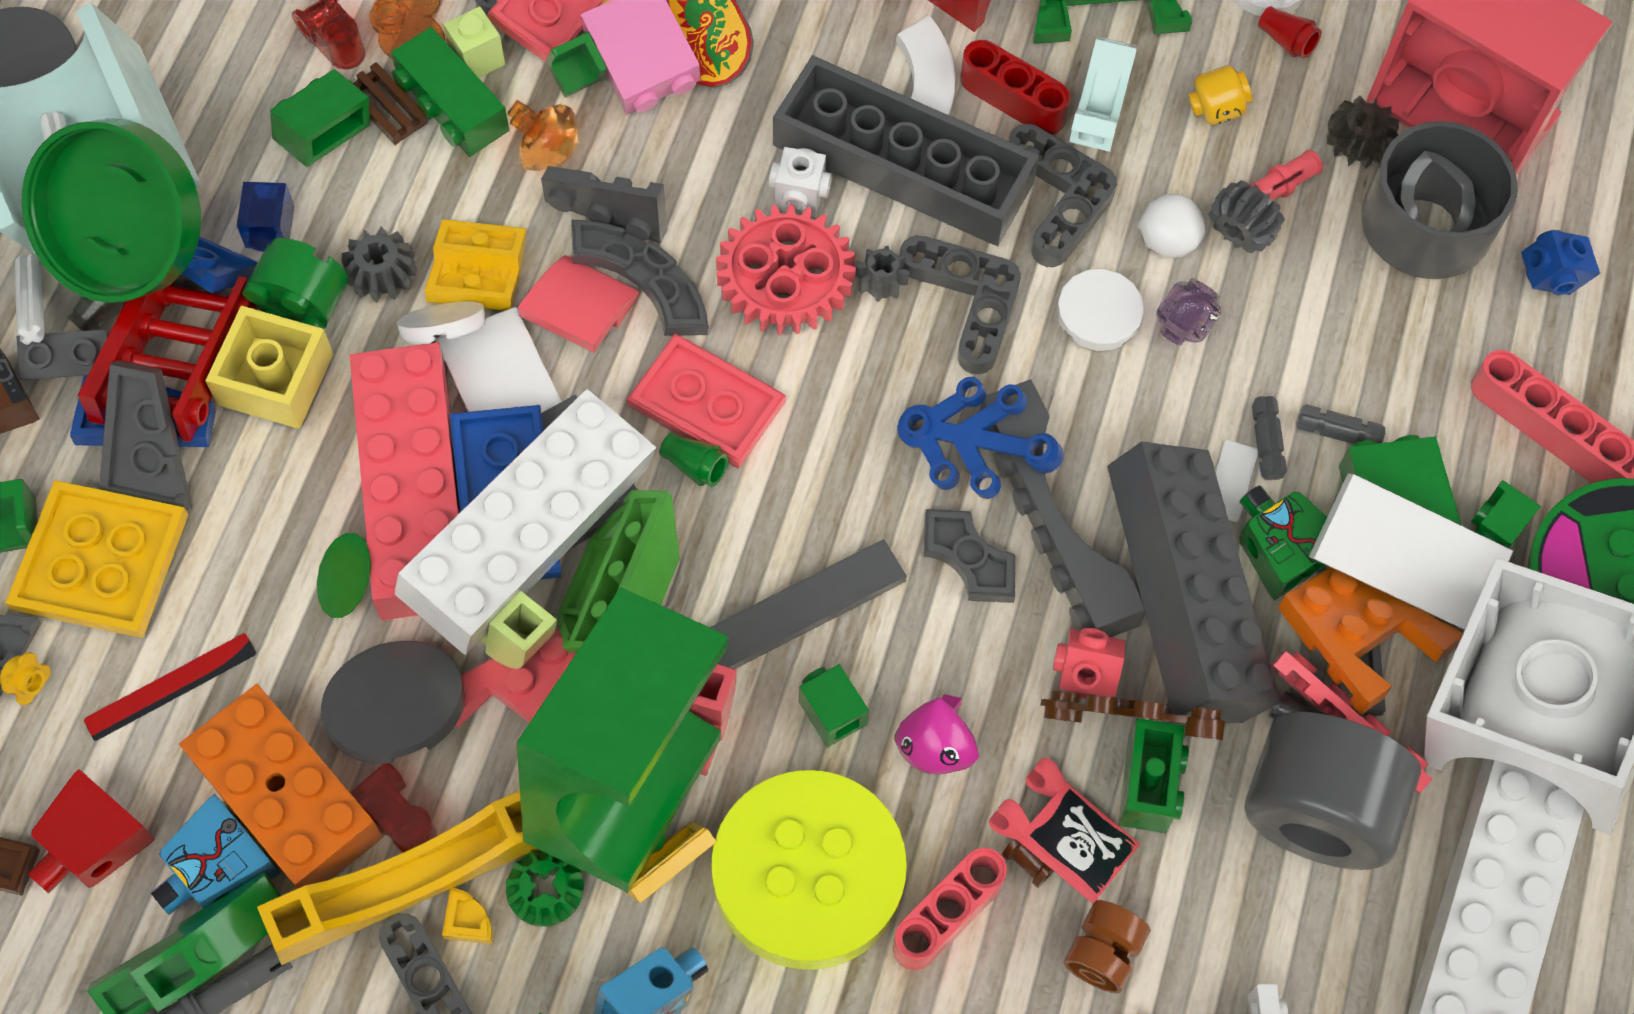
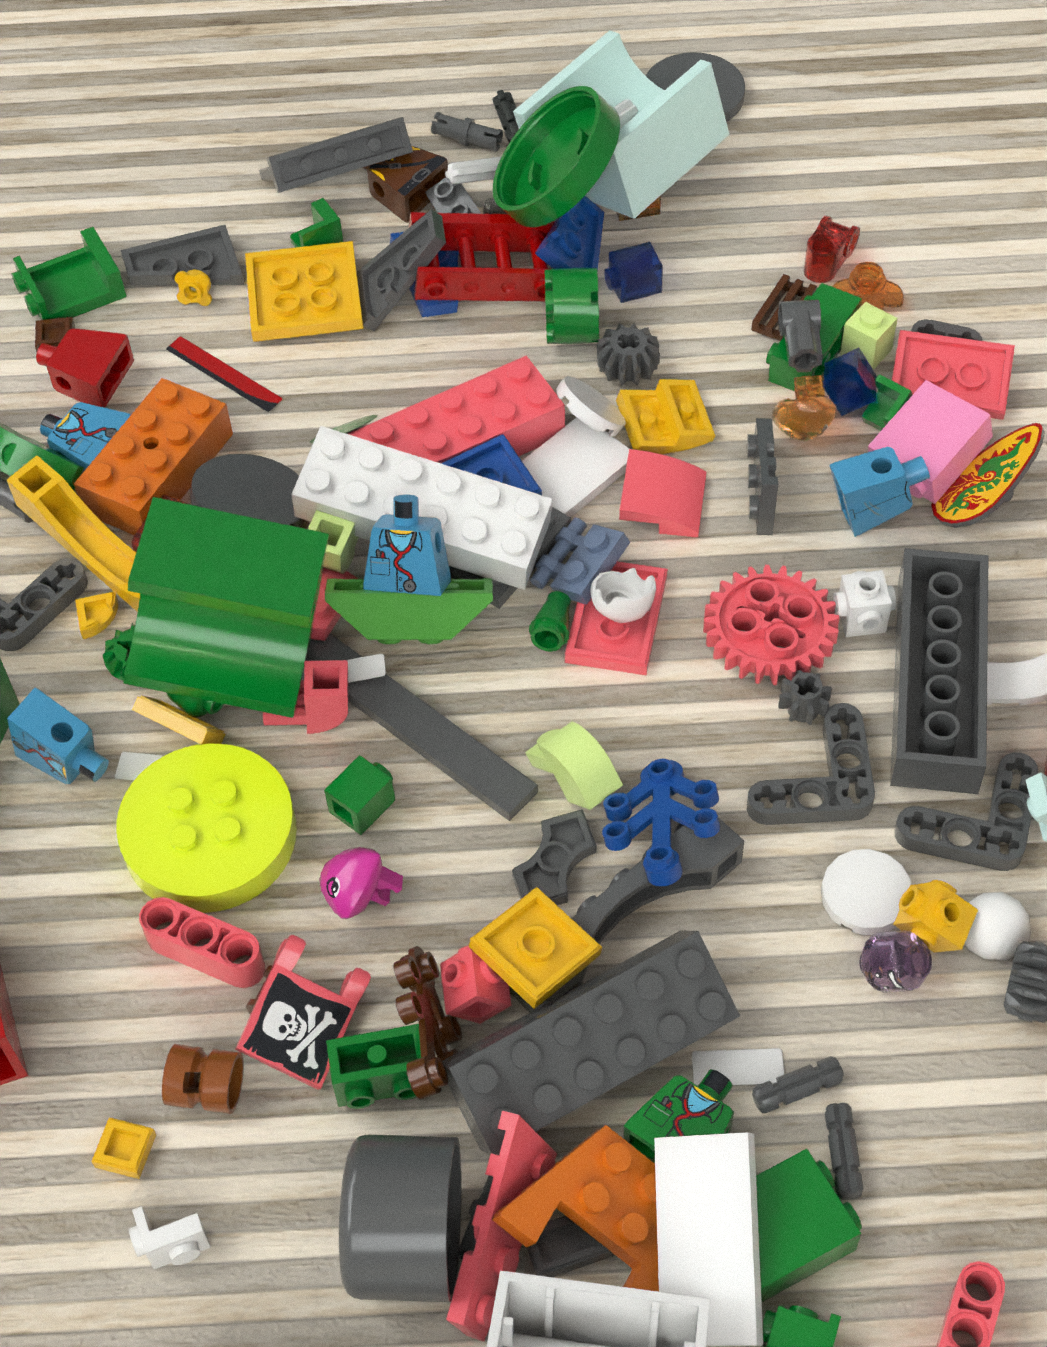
camera: 75 degrees right, 10 degrees down
(270, 367) = (498, 319): light yellow brick -> none
(320, 117) = (736, 257): green brick -> none
(451, 88) = (801, 327): none -> dark grey piece
(531, 81) = (850, 381): none -> clear blue brick
(592, 551) = (407, 552): none -> dark azure torso
(643, 396) = (591, 555): none -> sand blue plate
(648, 268) = (723, 531): dark grey tile -> none
(682, 112) = (875, 487): none -> dark azure torso
(693, 924) = (133, 764): none -> white sticker
(707, 377) = (622, 595): none -> white hair
(879, 490) = (577, 764): none -> yellowish green brick
(1091, 591) = (535, 947): none -> yellow plate
(1158, 262) = (936, 915): none -> yellow brick

